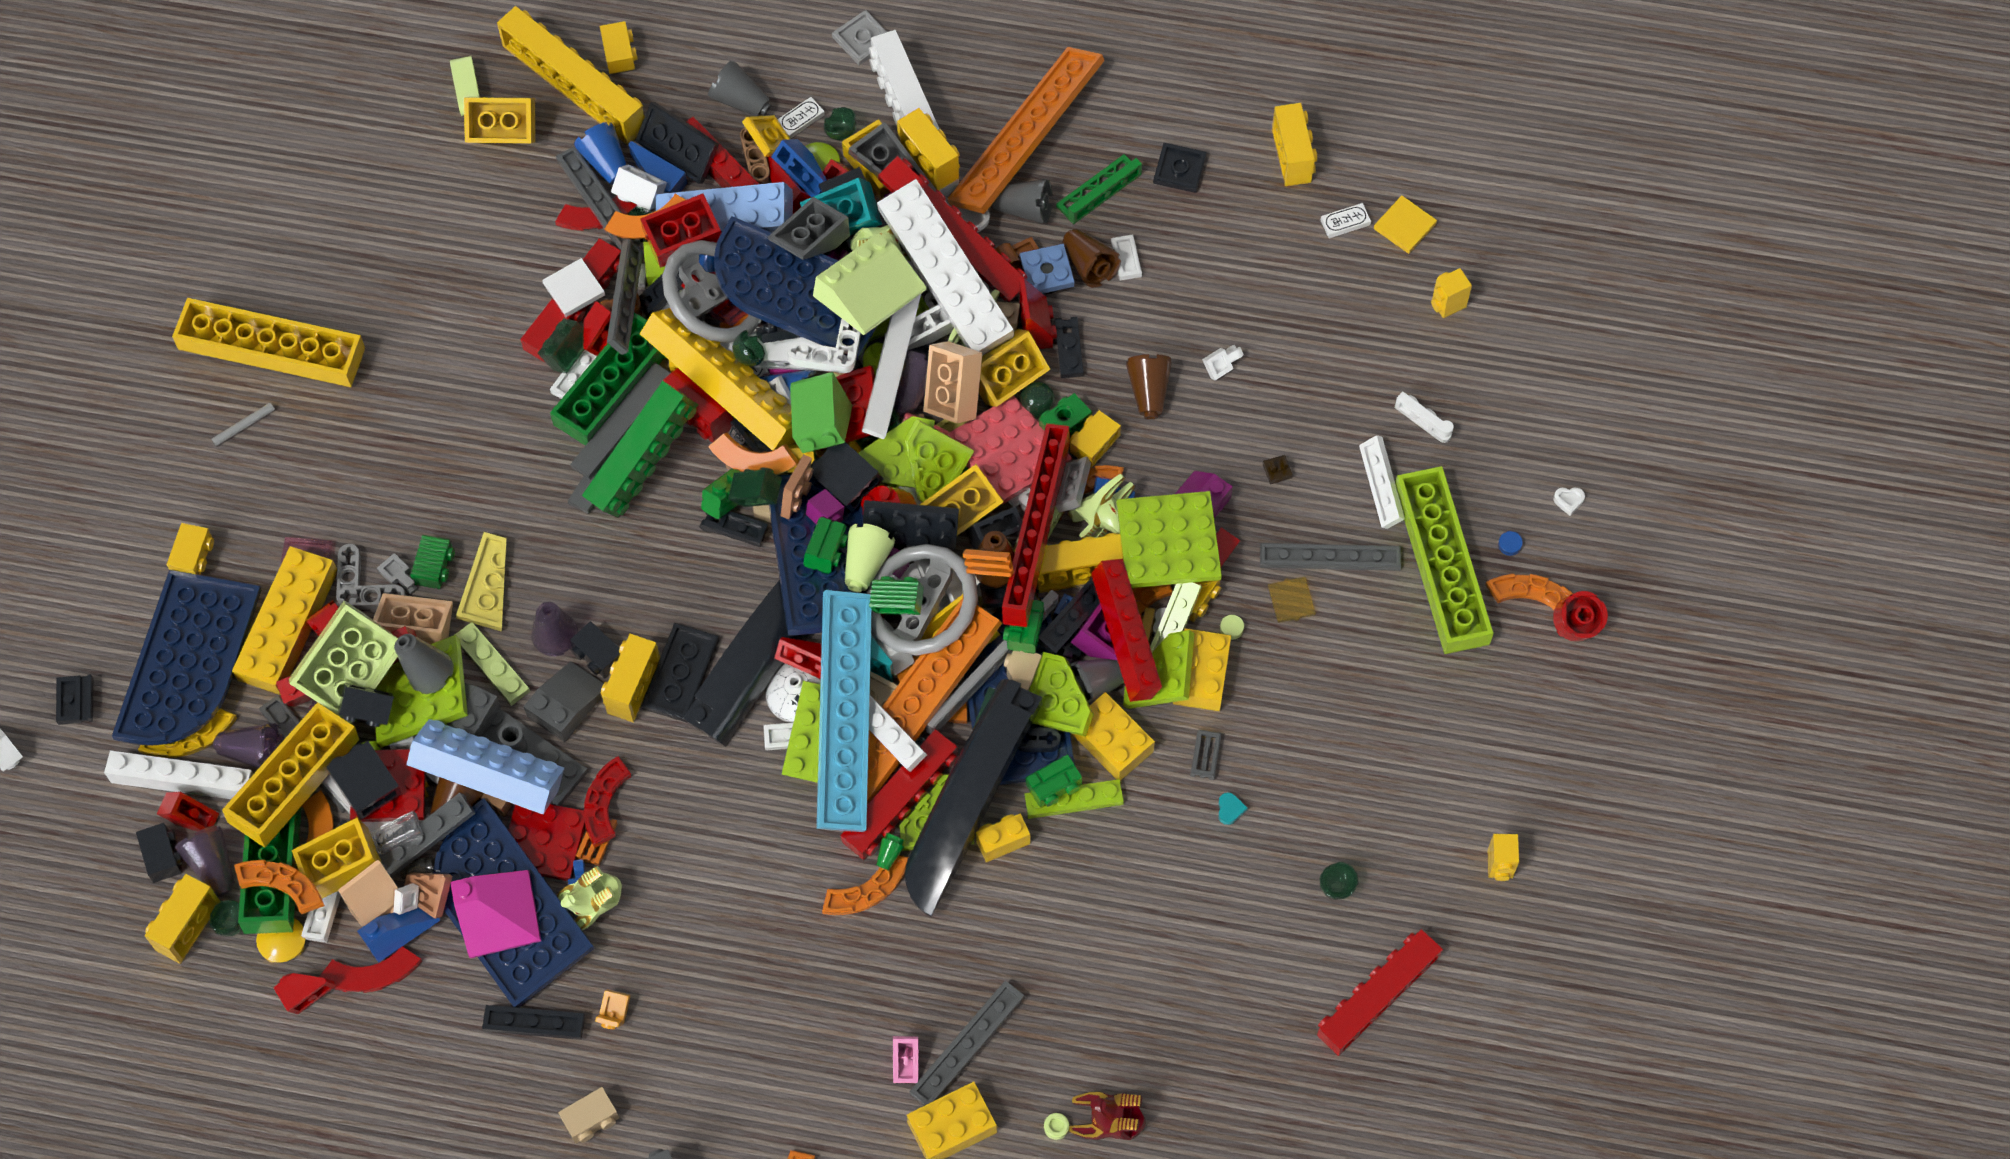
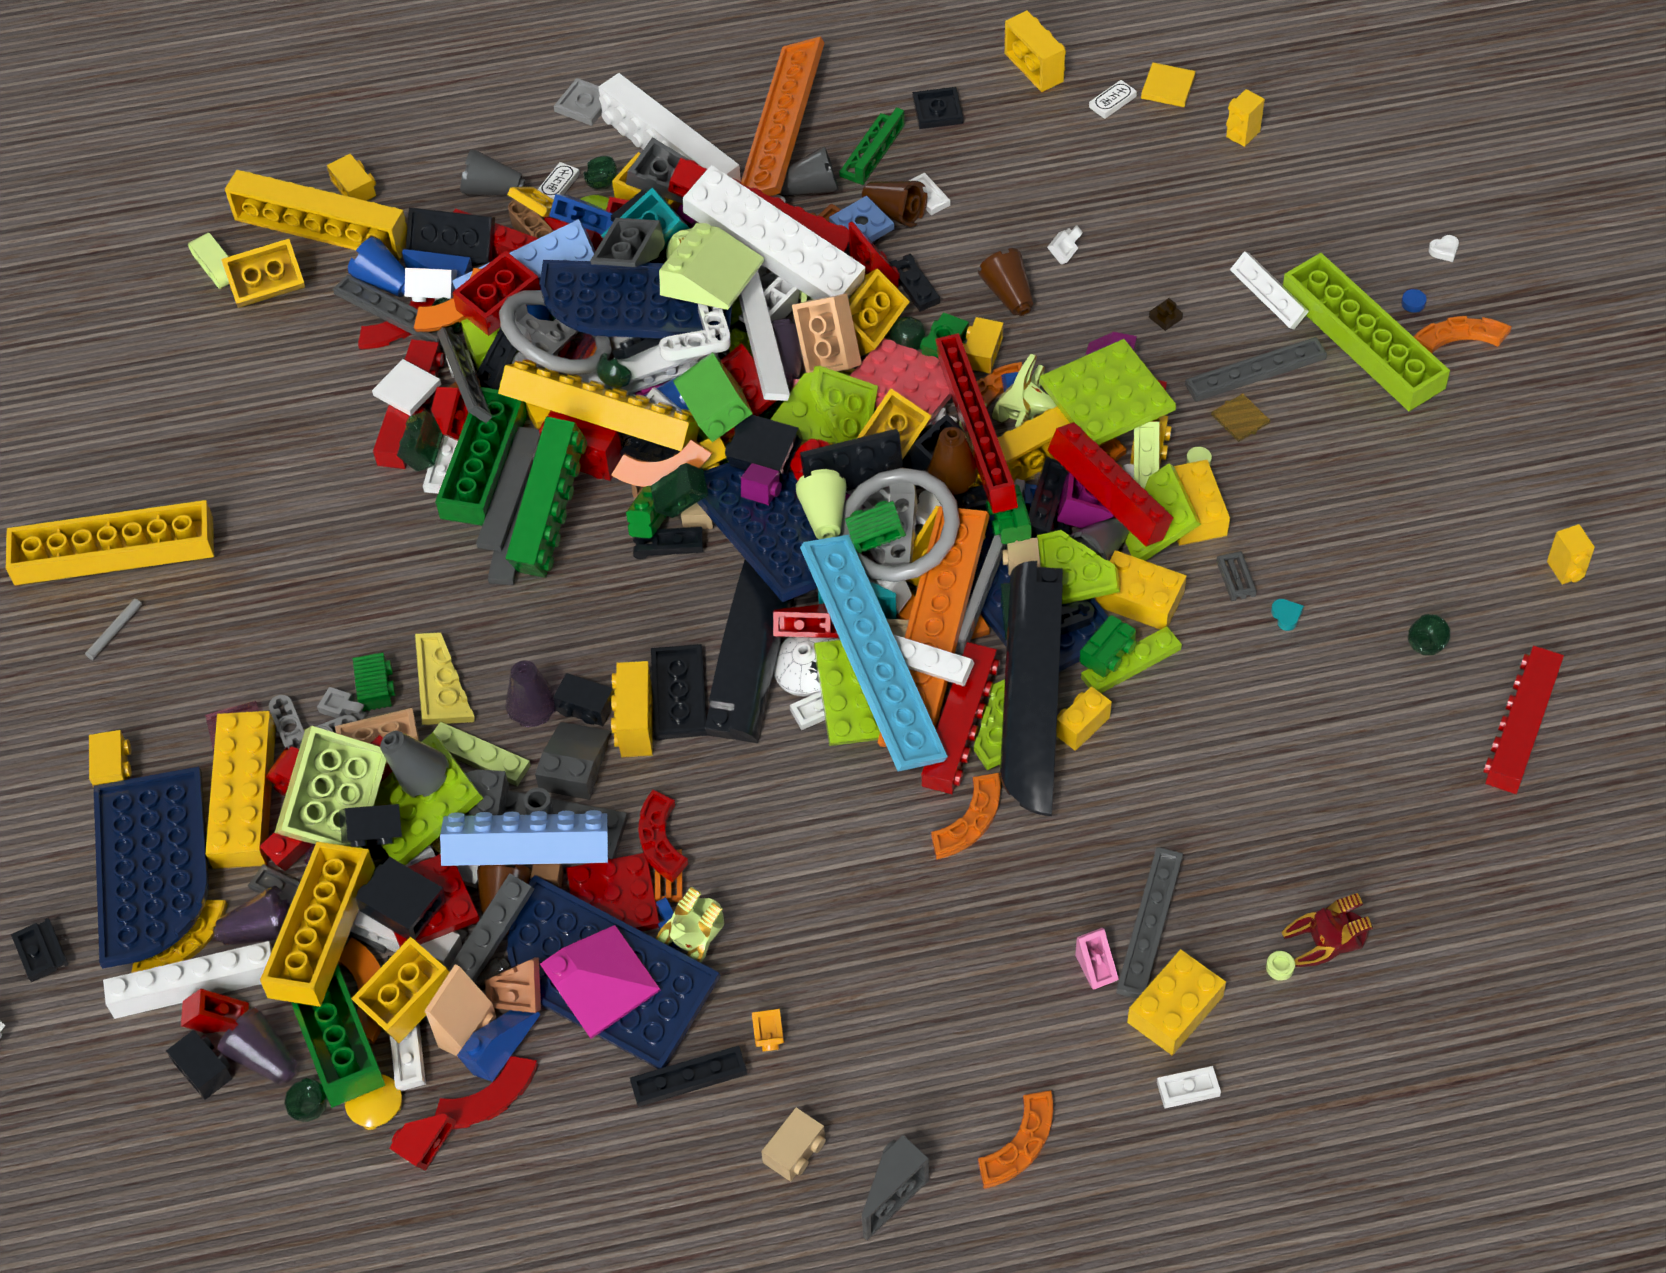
camera: 20 degrees left, 10 degrees down
(181, 918) = (255, 1117): yellow brick -> none
(283, 878) = (354, 1027): orange tile -> none
(396, 832) = (457, 940): clear tile -> none
(406, 898) = (496, 1003): white tile -> none
(797, 487) = (724, 470): nougat plate -> none
(825, 545) = (778, 511): green brick -> none
(890, 849) = (978, 770): green cone -> none
(929, 148) = (705, 144): yellow brick -> none
(989, 564) = (956, 462): orange tile -> none
(1073, 484) = (988, 385): light grey plate -> none
(1424, 417) = (1277, 226): white plate -> none
(1582, 604) = (1517, 331): red brick -> none

